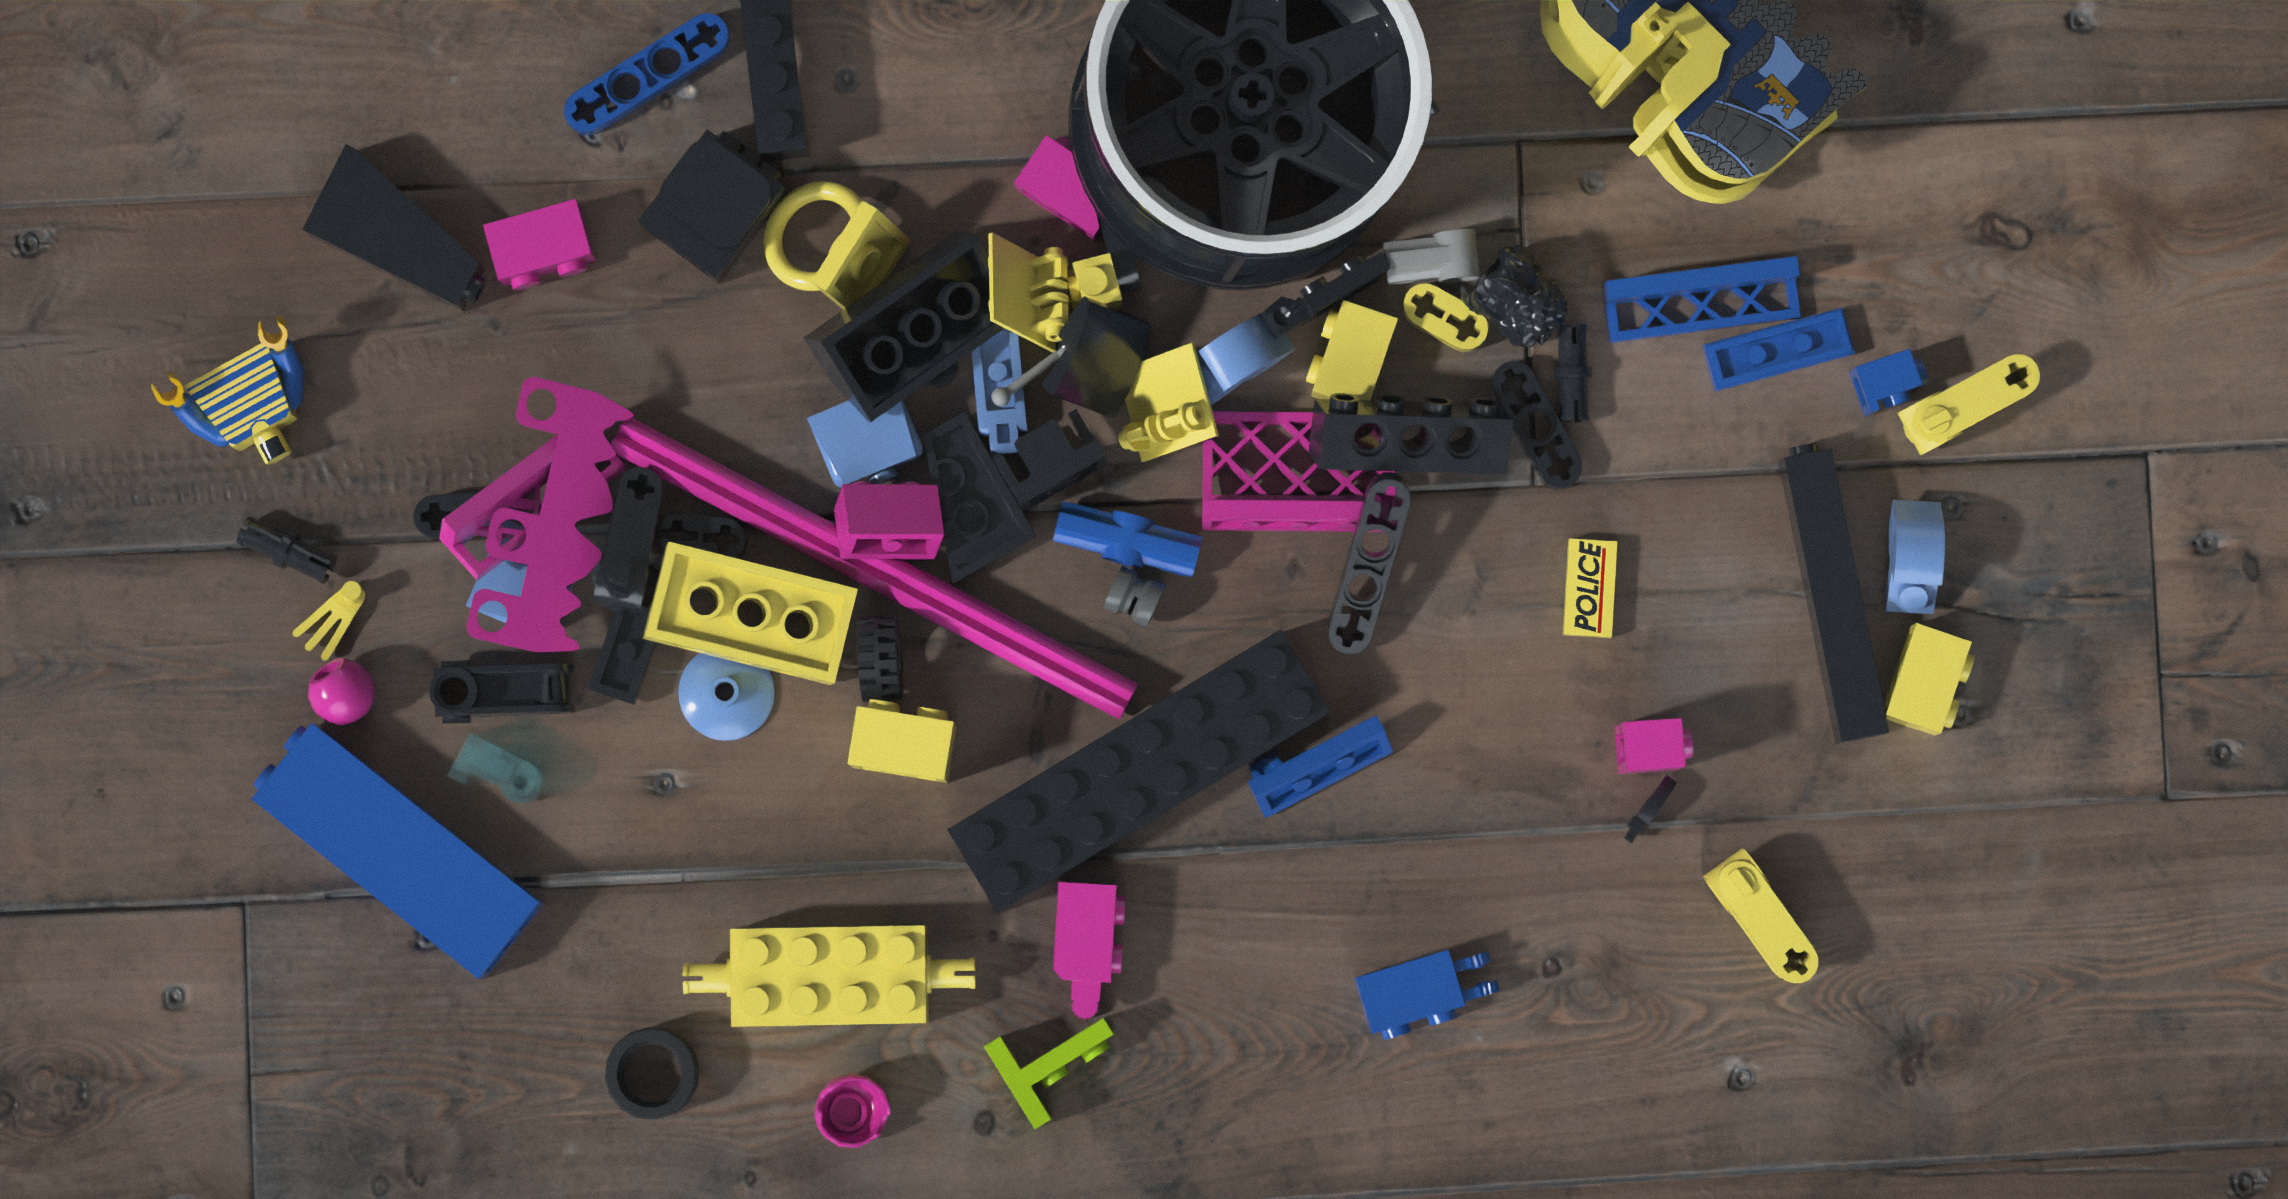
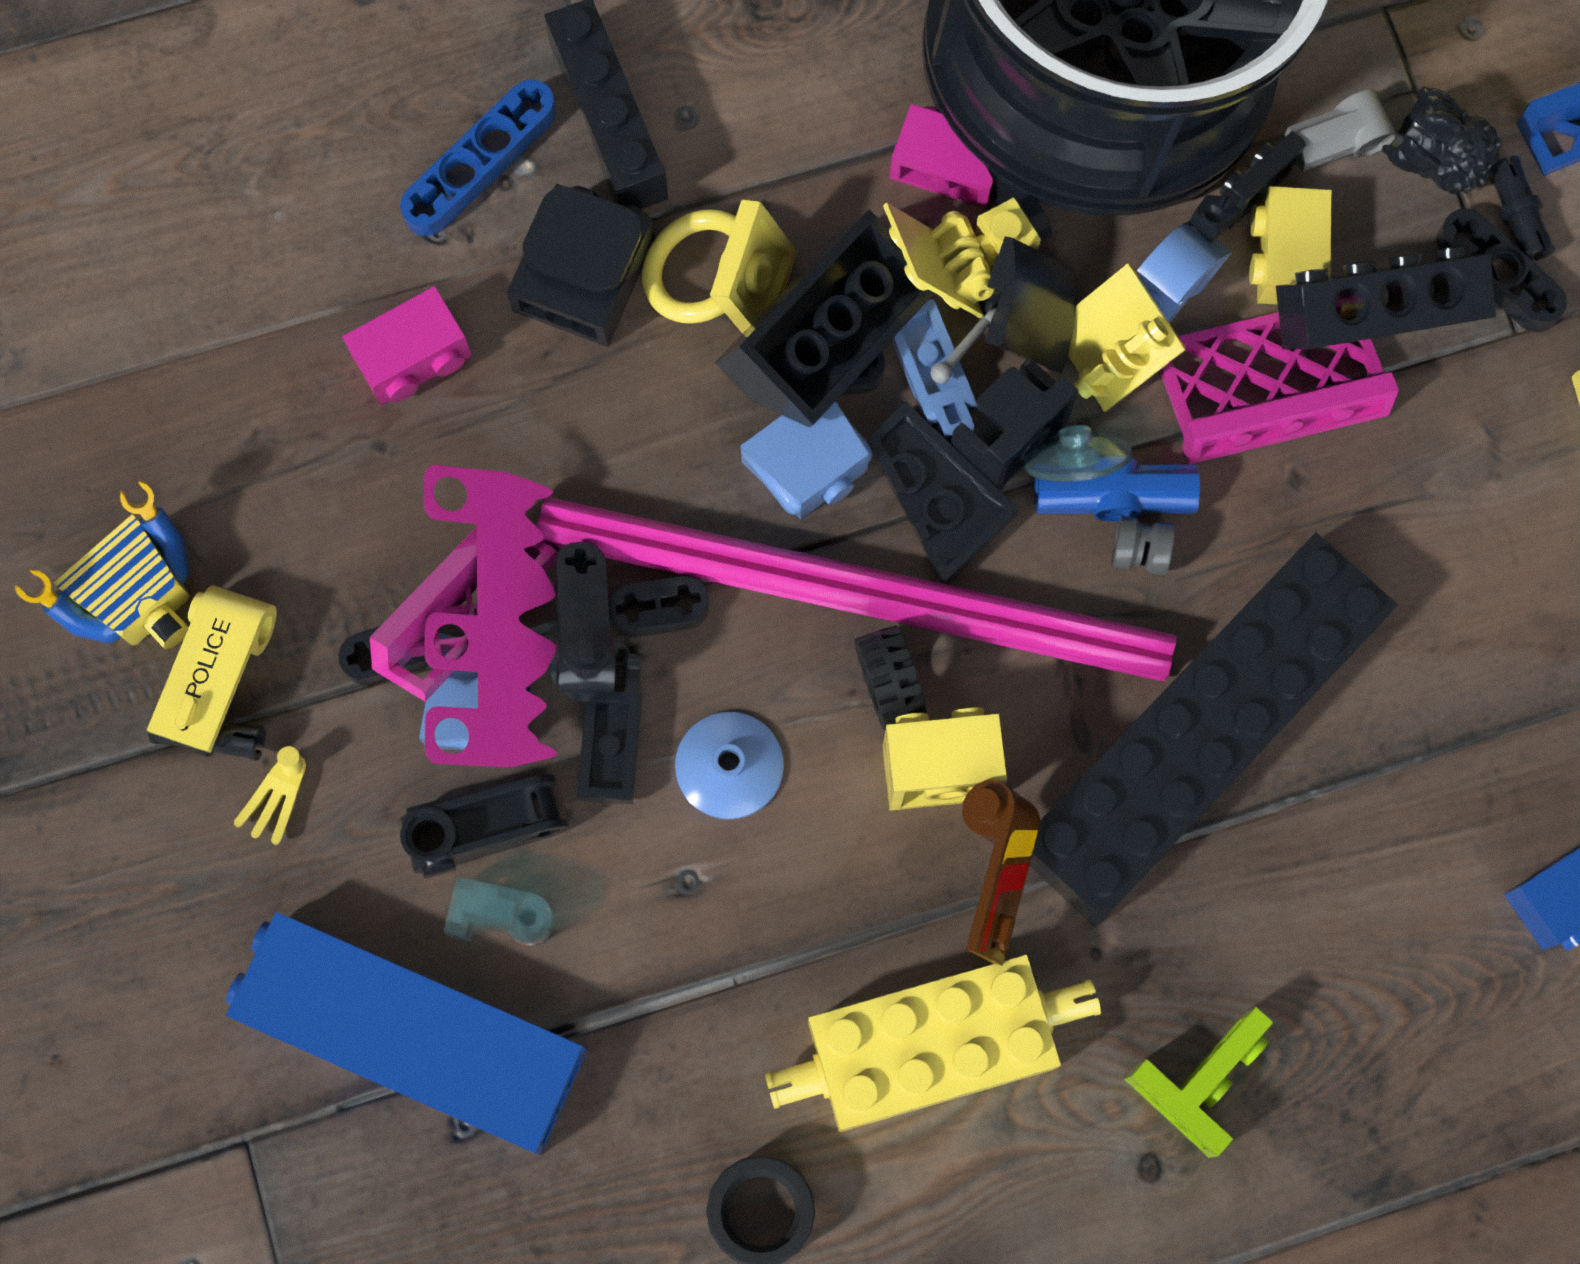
camera: 15 degrees left, 10 degrees down
(304, 491) = (210, 665): none -> light yellow door
(341, 691) = (303, 871): dark pink piece -> none
(383, 228) = (242, 375): black slope -> none
(776, 591) = (758, 637): light yellow brick -> none
(851, 1110) = (1001, 1192): dark pink hair -> none
(888, 521) = (859, 530): dark pink brick -> none
(939, 818) = (1013, 828): none -> reddish brown door
(1085, 941) = (1206, 930): dark pink hinge -> none
(1099, 505) = (1078, 456): none -> clear light blue dish
(1283, 784) = (1365, 701): blue hinge -> none
(1373, 564) = (1393, 442): black beam -> none
(1438, 327) = (1371, 188): light yellow beam -> none

